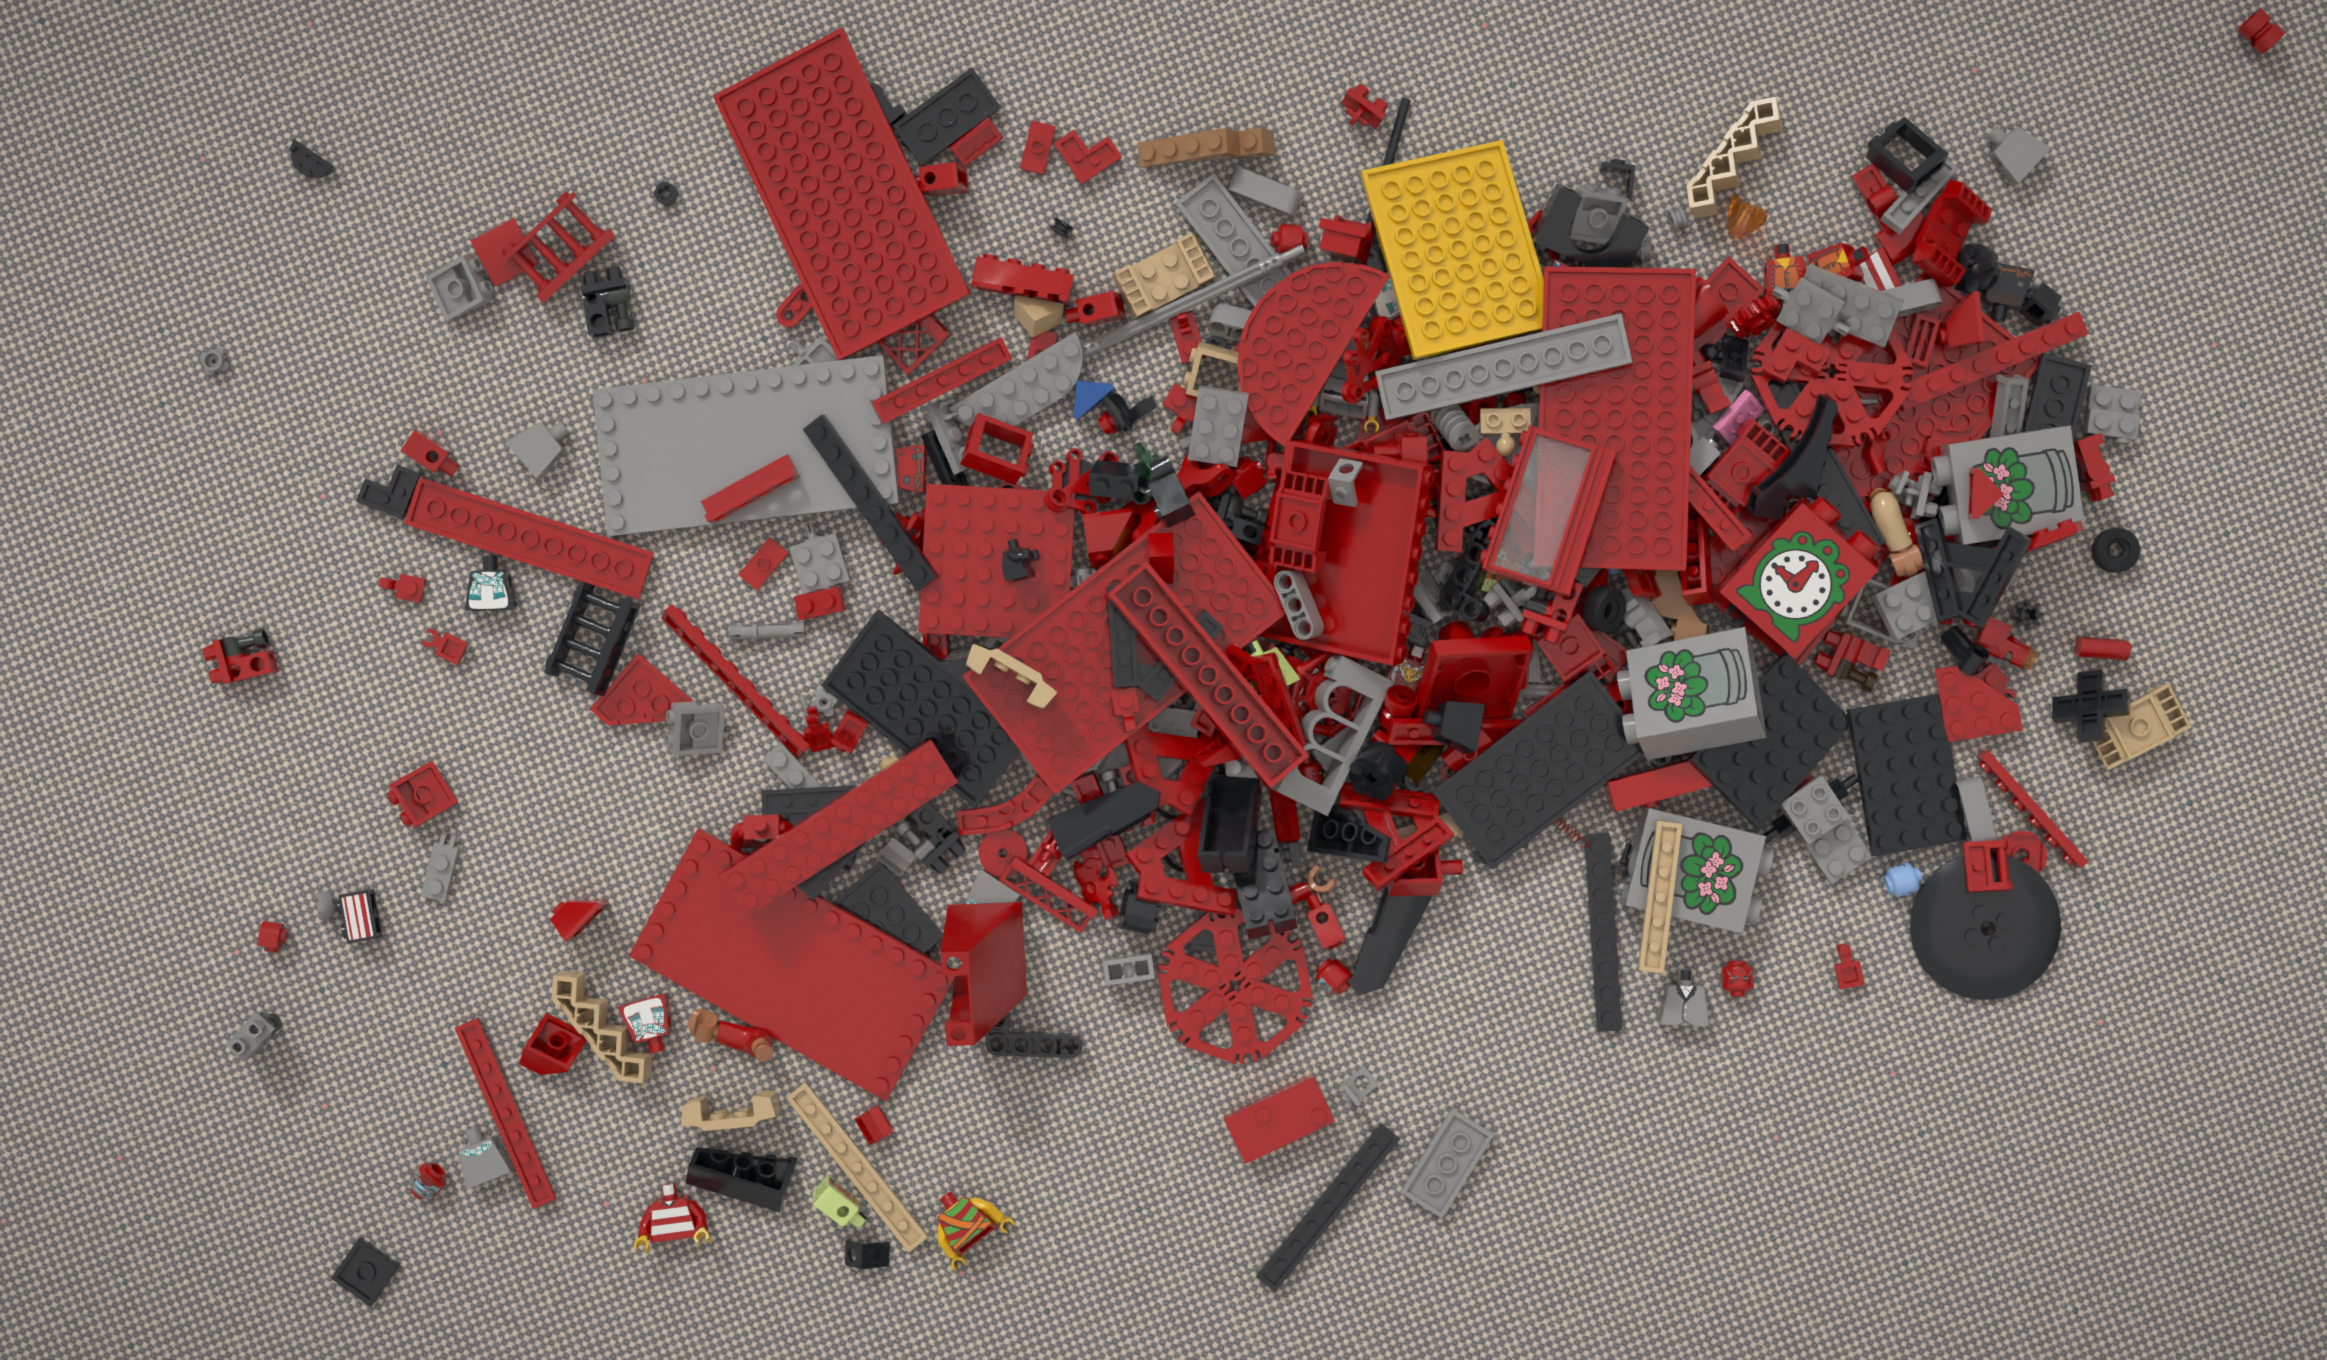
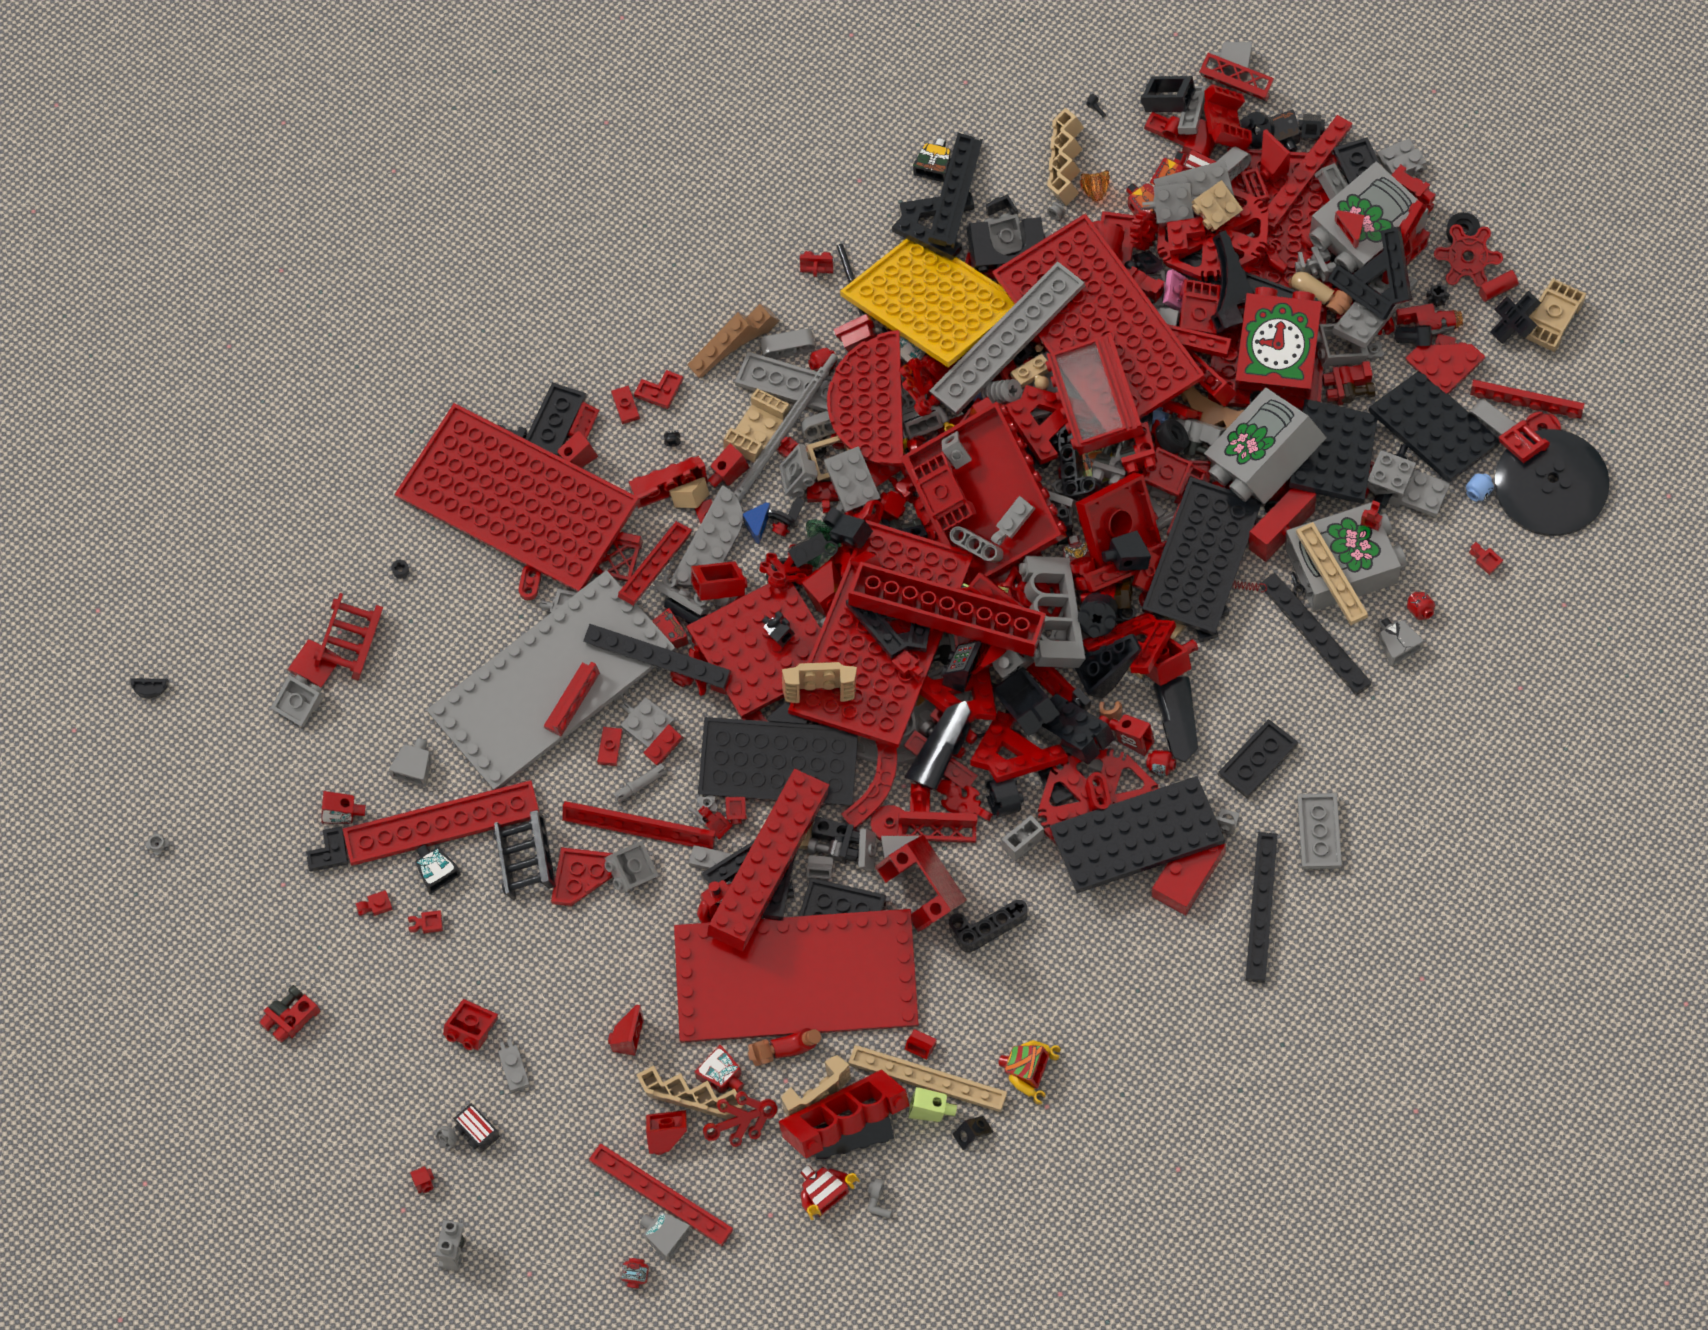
camera: 25 degrees left, 25 degrees down
(600, 297) = (397, 650): black hips -> none
(660, 1099) = (742, 1118): none -> red plant
(679, 1179) = (799, 1129): none -> red fence
(725, 1252) = (875, 1189): none -> light grey plate
(957, 872) = (867, 850): none -> light grey plate
(1168, 369) = (797, 472): none -> light grey plate
(1186, 739) = (961, 664): none -> black slope
(1240, 972) = (1098, 792): none -> red plate
(1248, 1050) = (1137, 834): none -> black plate
(1354, 608) = (1013, 520): none -> light grey plate
(1440, 1038) = (1258, 758): none -> black plate
(1515, 168) = (910, 229): none -> black plate
(1579, 121) = (955, 190): none -> black plate
(1583, 60) = (932, 161): none -> torso
(1750, 862) = (1371, 517): none -> red plate
(1815, 100) = (1091, 103): none -> black hand
(1853, 352) = (1216, 206): none -> tan plate
(1993, 186) = (1236, 84): none -> red fence
(2095, 607) = (1477, 246): none -> red plate

